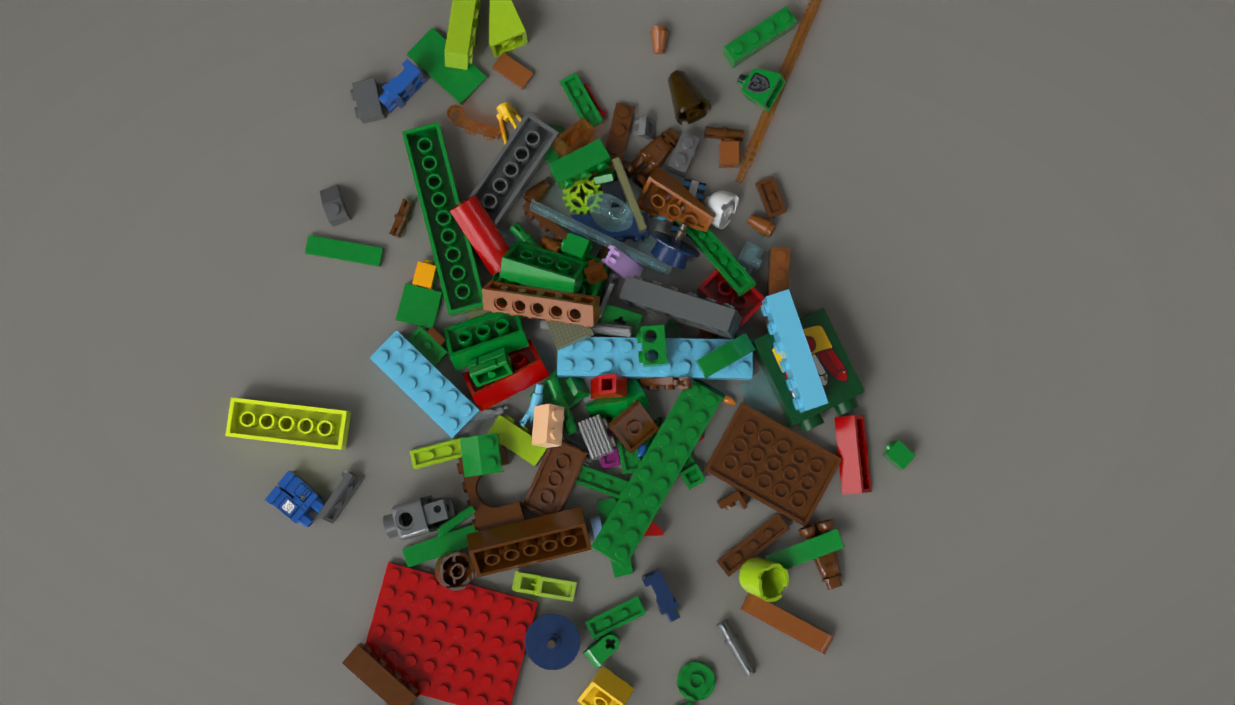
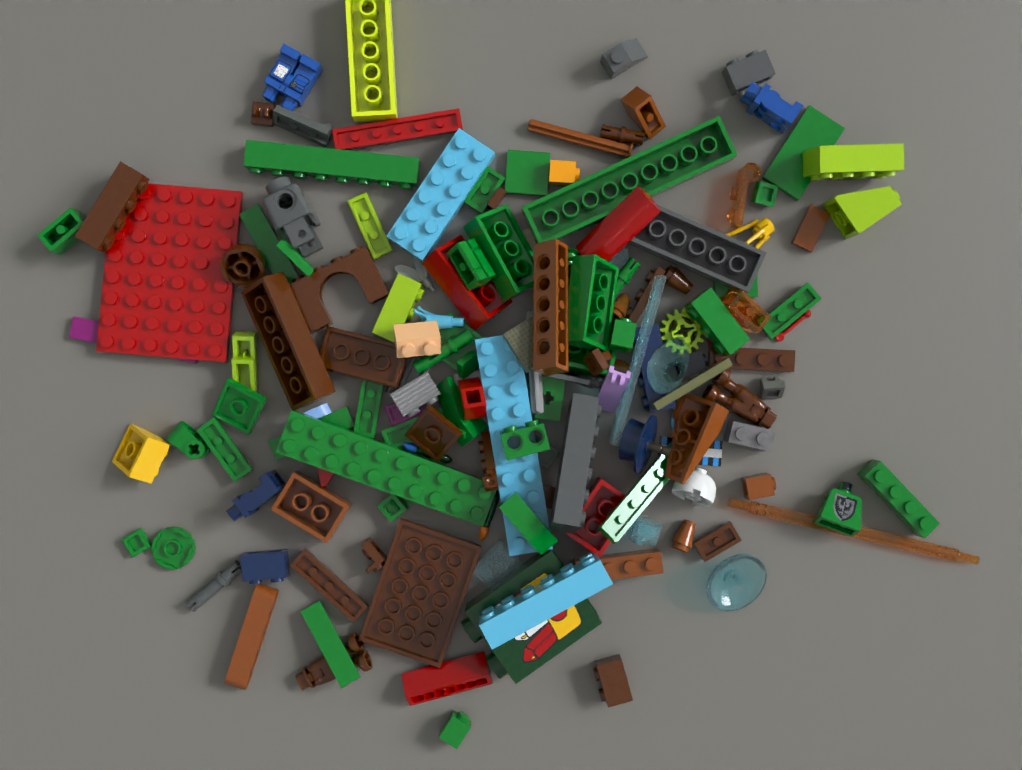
camera: 80 degrees right, 5 degrees up
(322, 531) = (262, 114): none -> reddish brown tile
(344, 251) = (574, 78): green tile -> none
(360, 413) = (397, 130): none -> red plate
(379, 476) = (331, 163): none -> green brick
(385, 196) = (643, 112): none -> dark orange slope
(397, 255) = (580, 138): none -> dark orange axle
(476, 104) = (764, 194): none -> green plate
(481, 455) = (372, 272): green slope -> none
(552, 642) = (184, 386): dark blue piece -> none
(579, 597) = (239, 406): none -> green tile
(605, 176) = (708, 352): green tile -> none
(659, 38) = (878, 385): dark orange cone -> none
(679, 547) = (311, 506): none -> dark orange brick
(687, 99) = (811, 430): dark brown cone -> none
(724, 133) = (781, 476): reddish brown pin -> none
(725, 599) = (265, 565): none -> dark blue brick
(763, 578) = (292, 604): lime cylinder -> none
(809, 187) = (736, 582): none -> clear light blue dish
(878, 308) = (613, 679): none -> reddish brown brick

